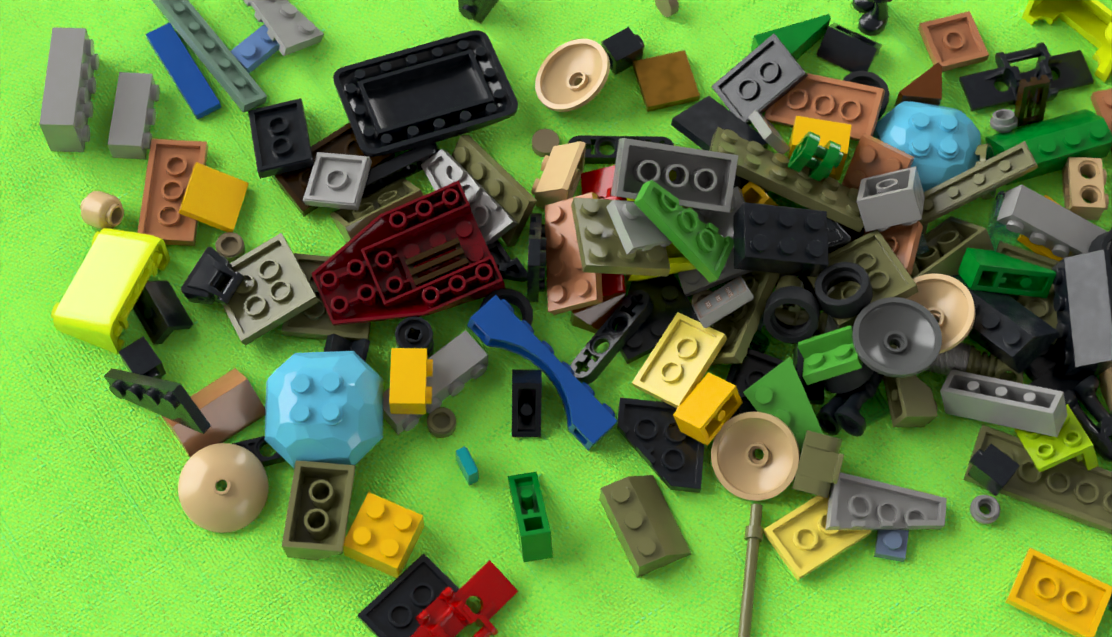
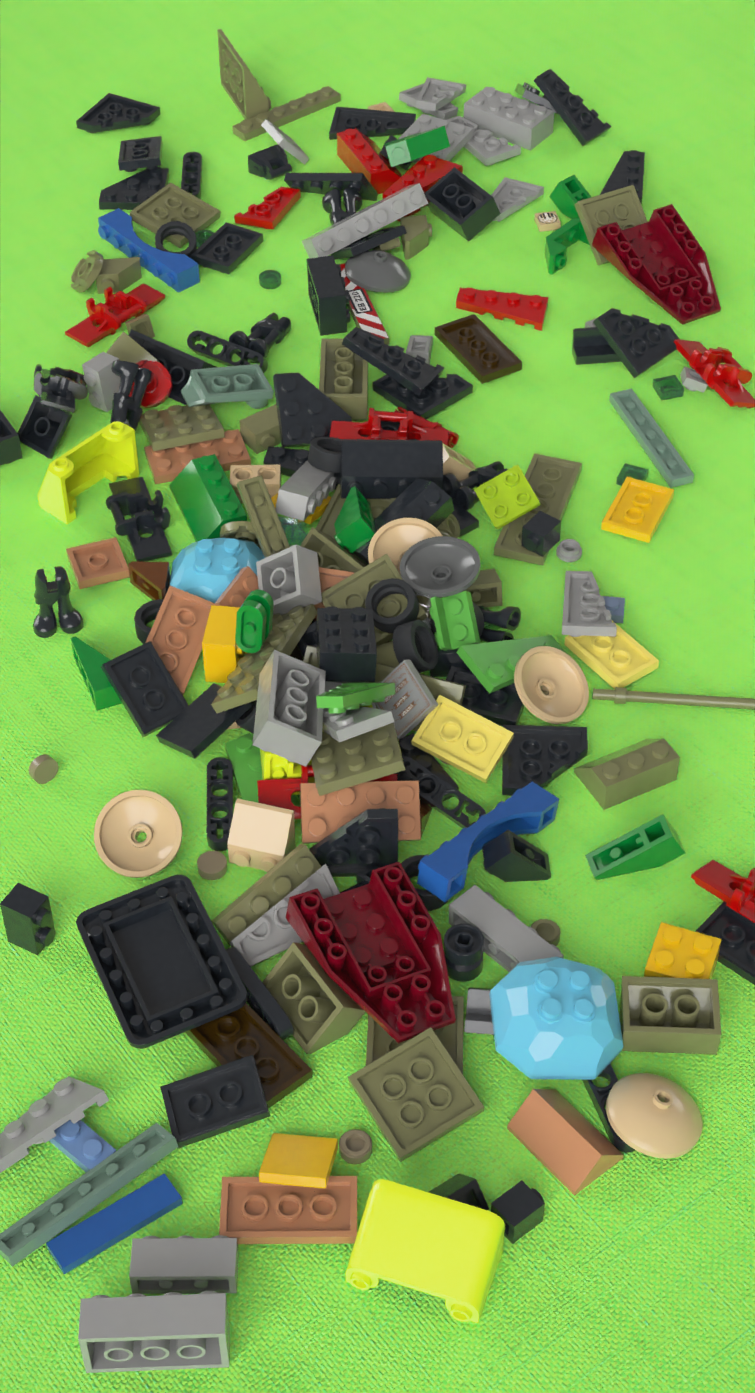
camera: 90 degrees left, 20 degrees down
(101, 210) = (320, 1281): tan head -> none
(158, 396) = (571, 1169): wing -> none
(209, 278) = (411, 1143): black piece -> none
(337, 181) = (277, 1031): light grey tile -> none
(409, 381) = (520, 937): yellow brick -> none
(429, 254) = (369, 906): dark brown tile -> none
(467, 465) = (593, 903): teal tile -> none
(623, 50) = (97, 795): black brick -> none
(666, 80) = (136, 769): pearl gold tile -> none
(707, 408) = (514, 711): yellow brick -> none
(769, 132) = (206, 679): light grey tile -> none
(818, 464) = (560, 629): olive piece -> none
(848, 48) = (106, 631): black panel -> none
(1003, 120) = (185, 531): light grey plate -> none
(1004, 402) = (485, 511): light grey brick -> none
(1026, 102) = (171, 505): tile -> none

